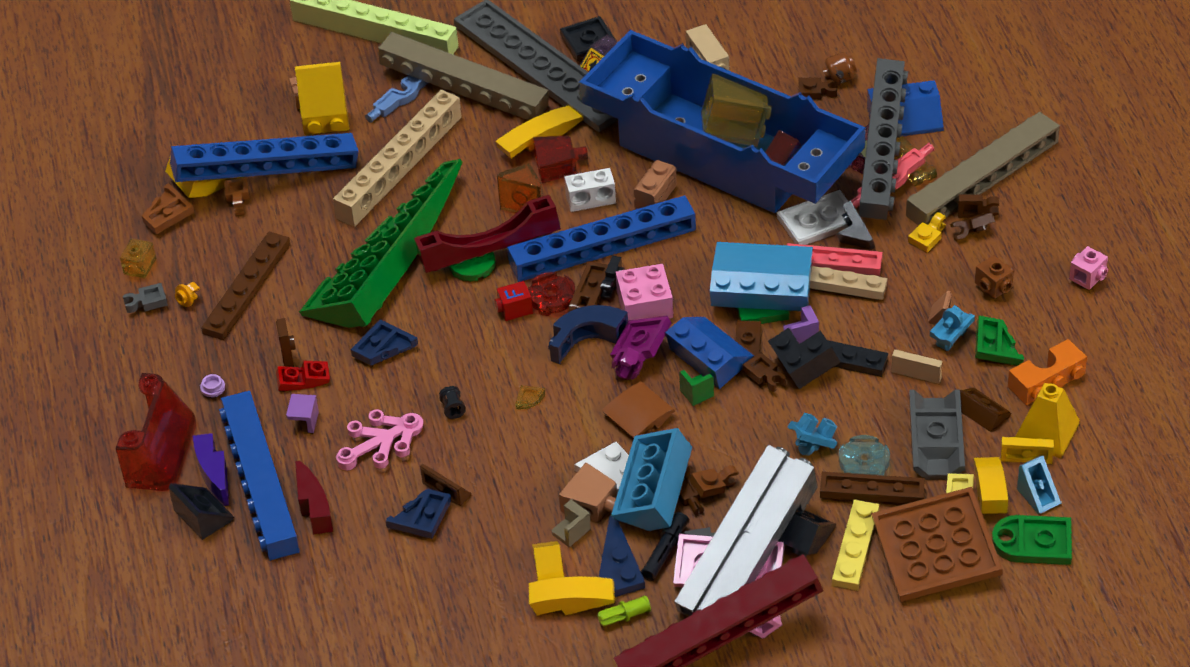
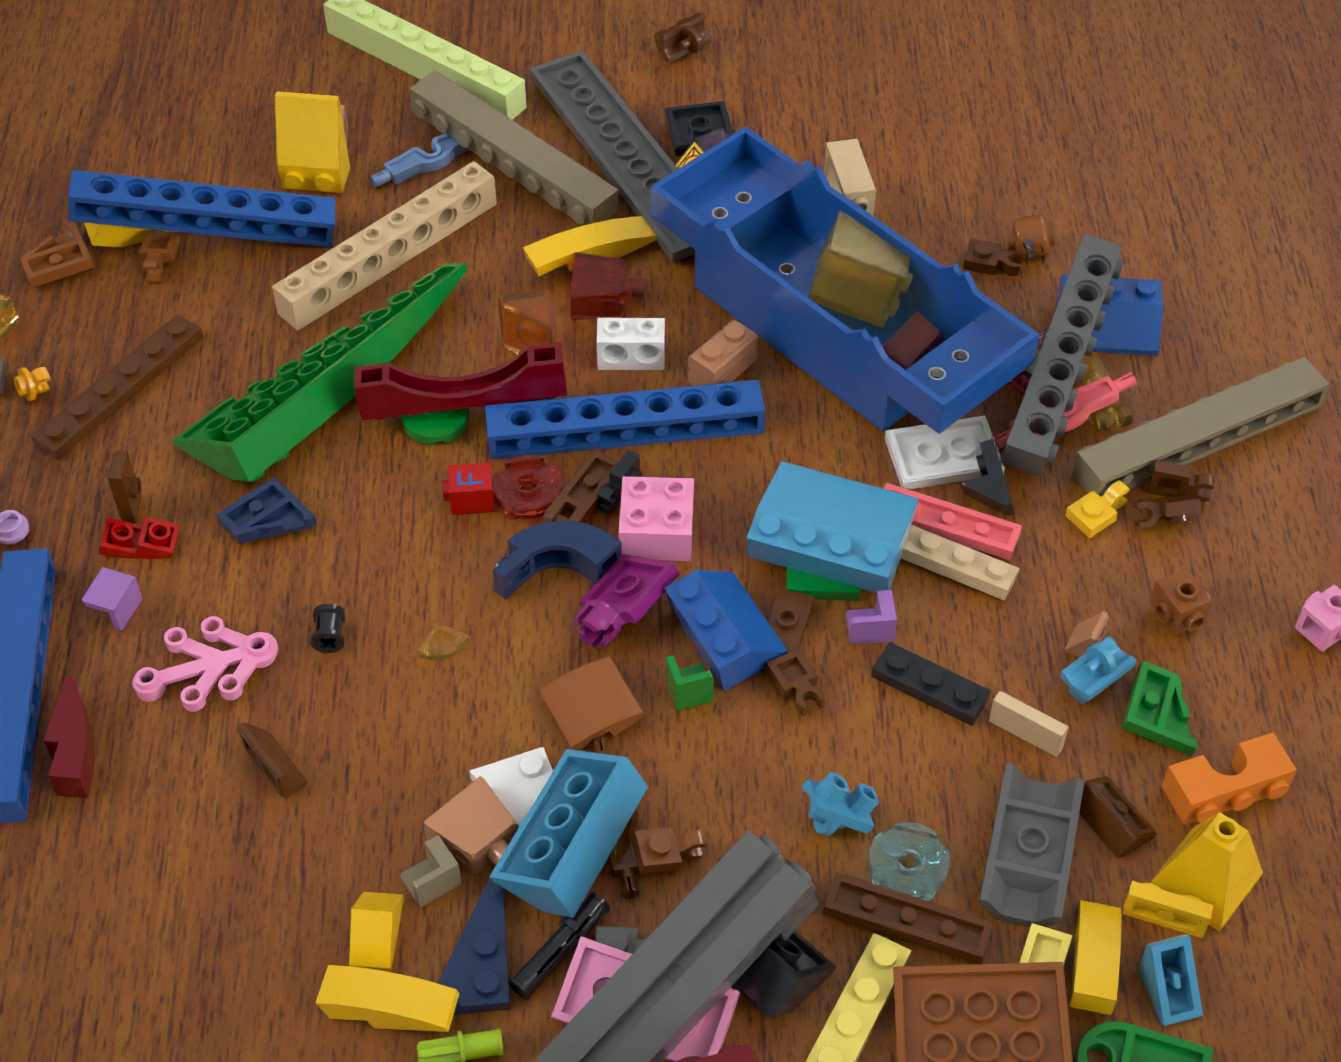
camera: 10 degrees right, 5 degrees up
(422, 514) = (219, 802): dark blue wing -> none
(804, 360) = (856, 676): black brick -> none

